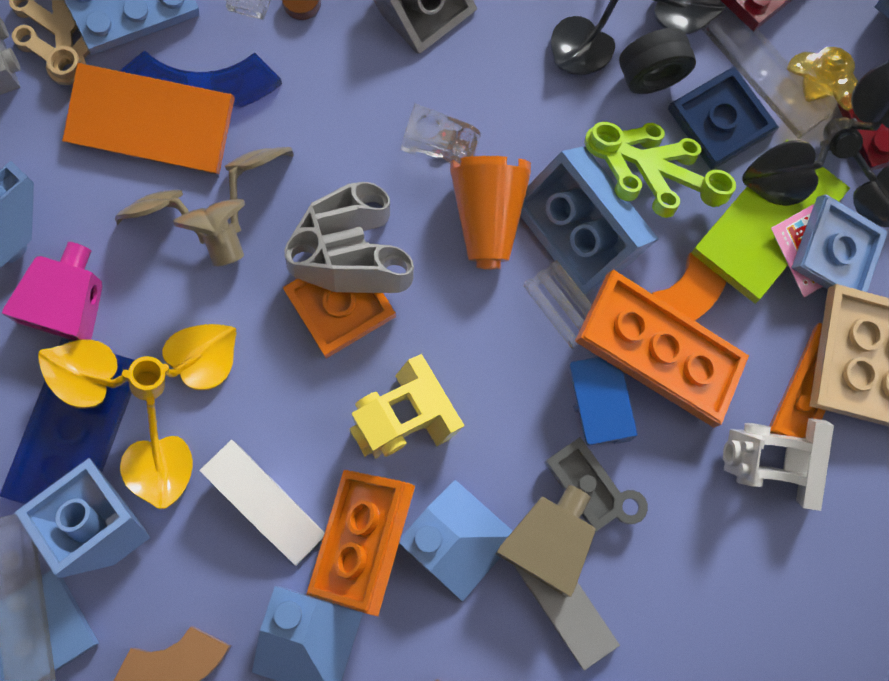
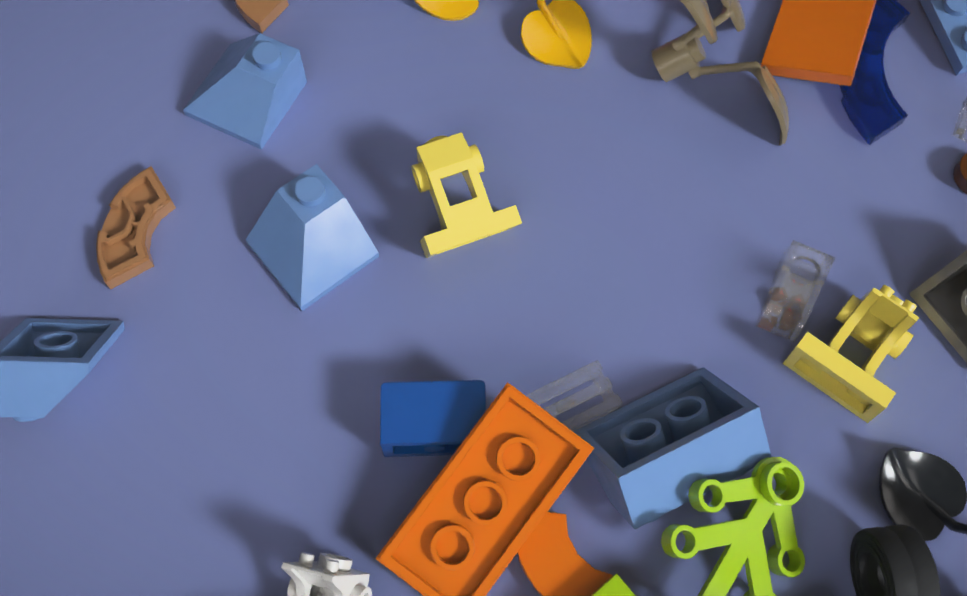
camera: 100 degrees right, 10 degrees down
(263, 502) = (392, 63): white slope -> none
(335, 237) = (666, 154): light grey connector -> none
(337, 317) = (598, 162): orange plate -> none
(361, 541) = (328, 140): orange tile -> none
(489, 205) = (695, 327): orange cone -> none
(506, 92) = (878, 323): none -> light yellow tile
(552, 541) = (277, 324): dark tan torso -> none
(575, 621) = (214, 343): light grey tile -> none
(579, 467) = (333, 393): dark grey hinge -> none

